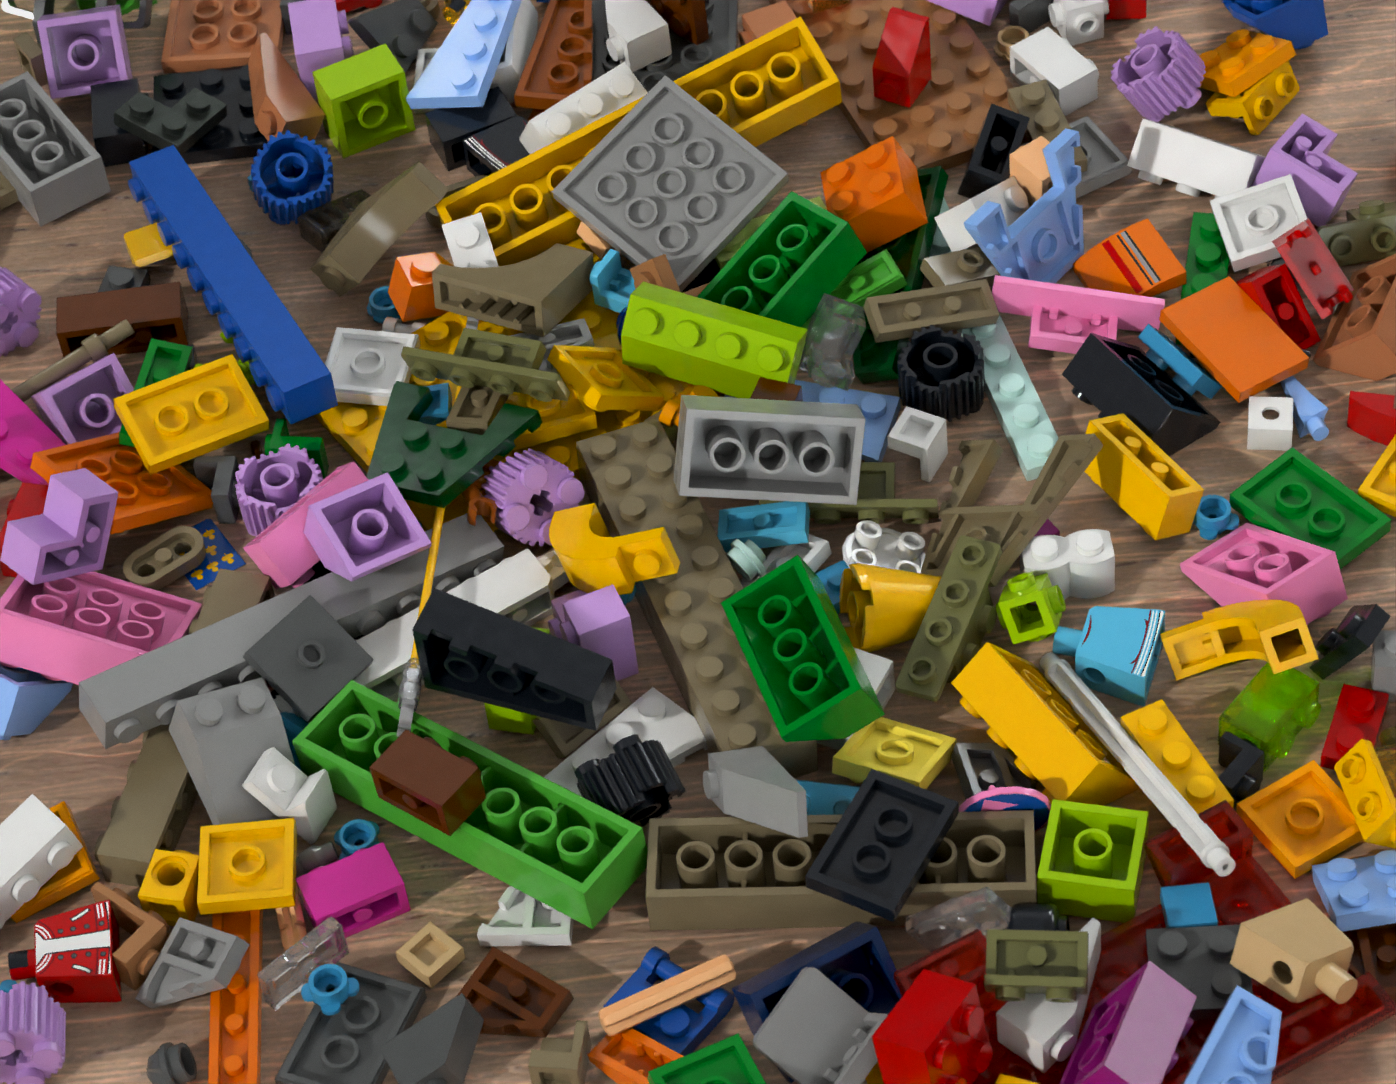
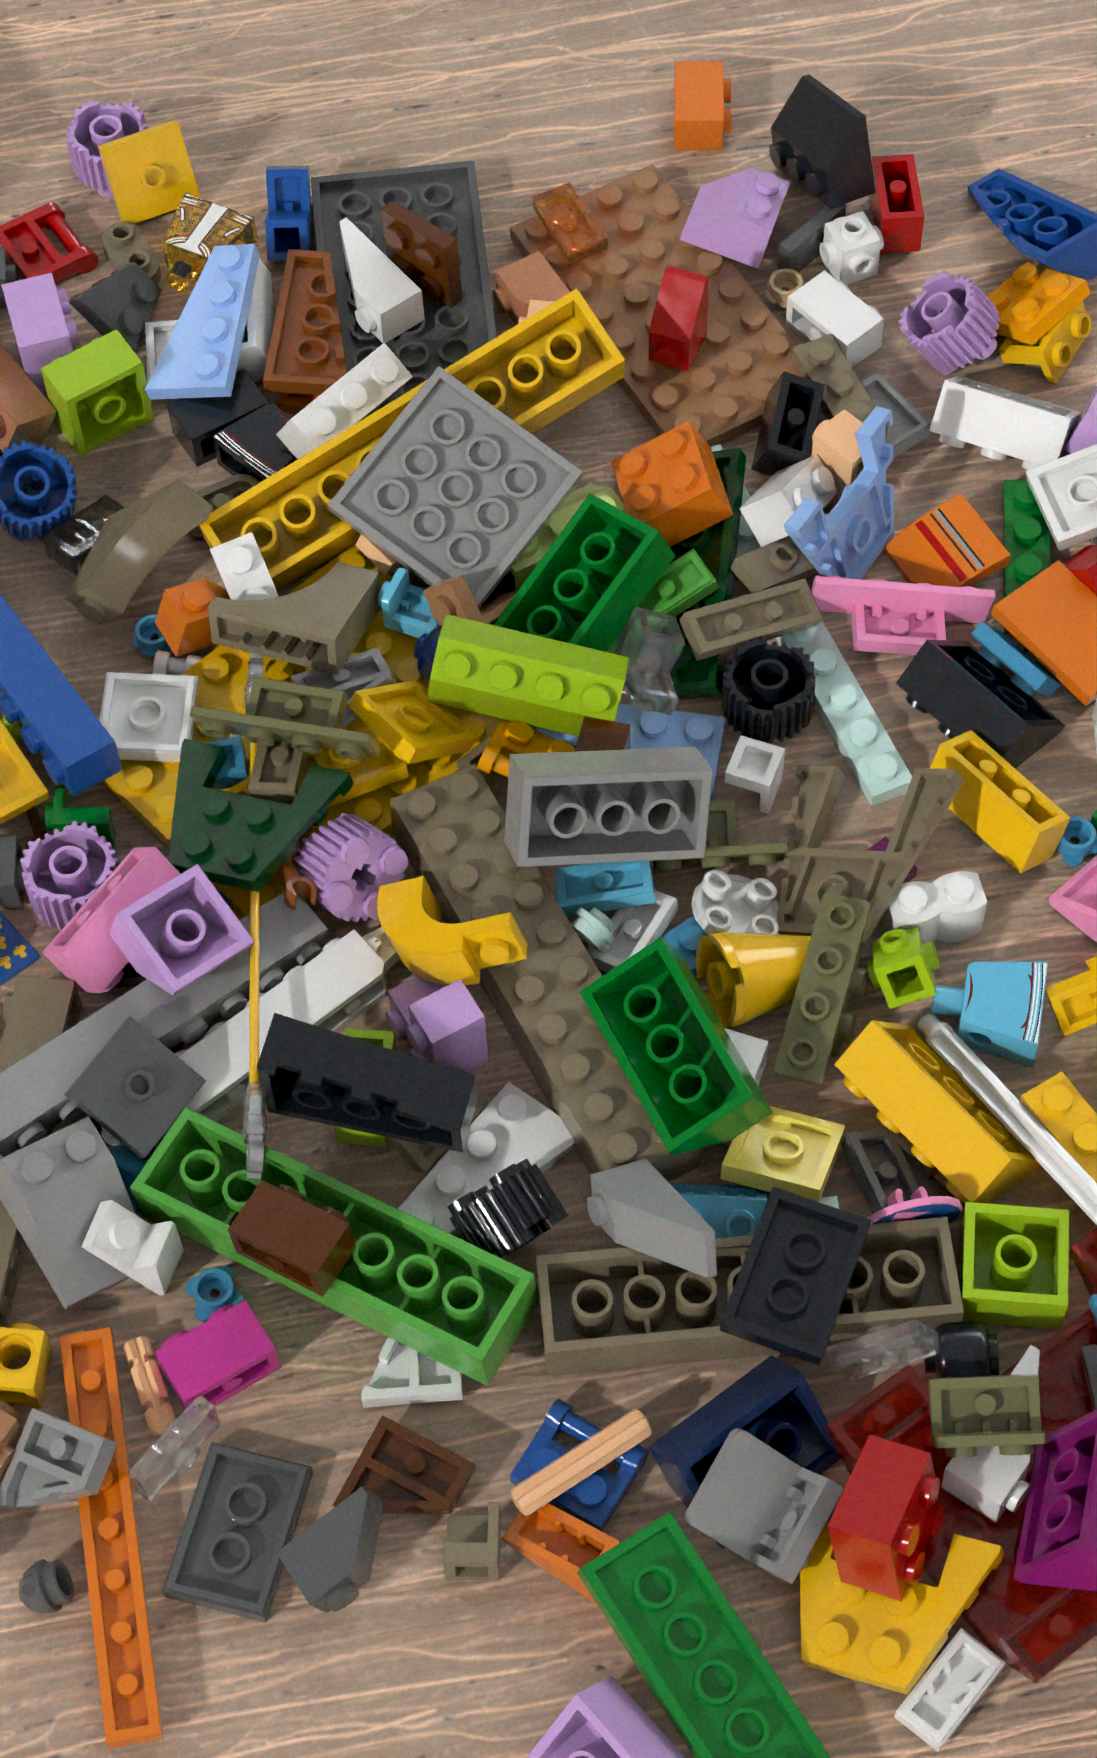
camera: 10 degrees left, 10 degrees up
(247, 866) = (99, 1340): yellow plate -> none
(315, 857) = (161, 1319): light grey piece -> none
(325, 978) = (209, 1465): dark azure plate -> none
(430, 955) = (313, 1426): tan plate -> none

